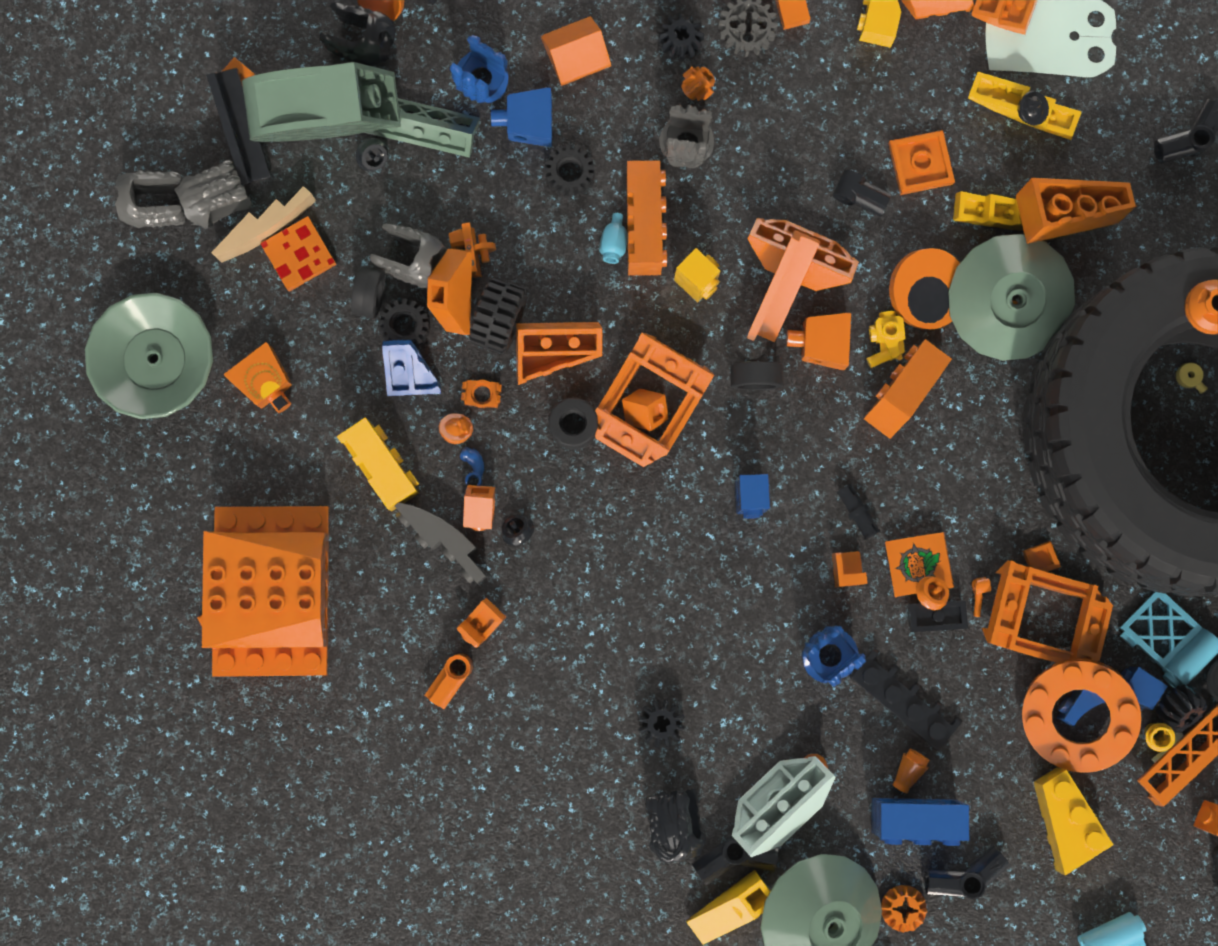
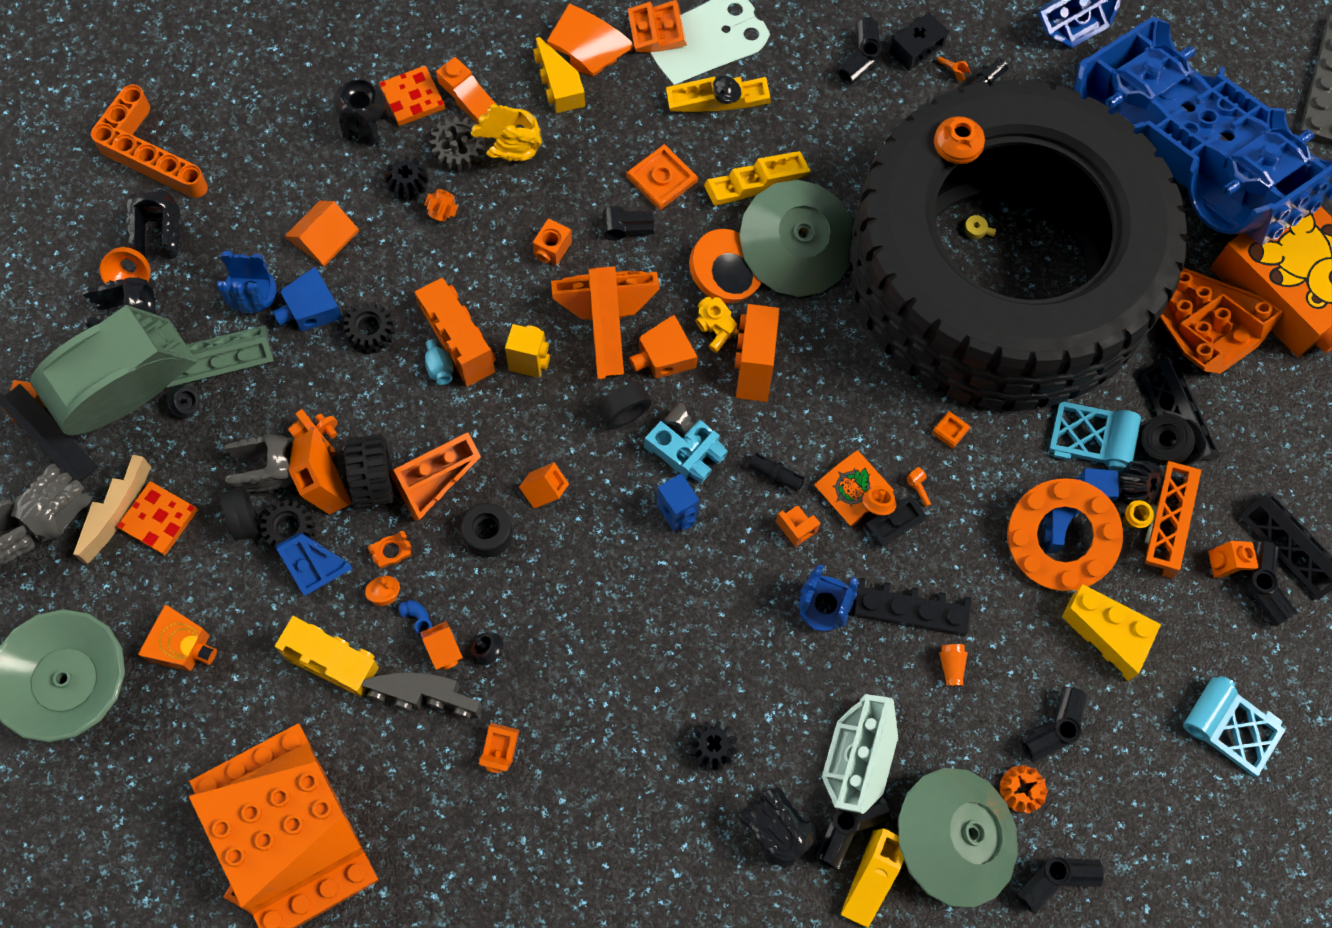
camera: 30 degrees left, 15 degrees down
(448, 681) = (497, 820): orange piece -> none
(670, 366) = (544, 435): orange wedge -> none
(683, 152) = (454, 247): dark grey piece -> none
(784, 166) = (553, 233): none -> orange brick
(788, 449) = (689, 452): none -> medium azure hips
(797, 32) = (511, 142): none -> yellow piece
(920, 820) = (988, 698): blue brick -> none
(1010, 605) = (950, 479): orange wedge -> none
(1071, 206) = (801, 144): orange wedge -> none

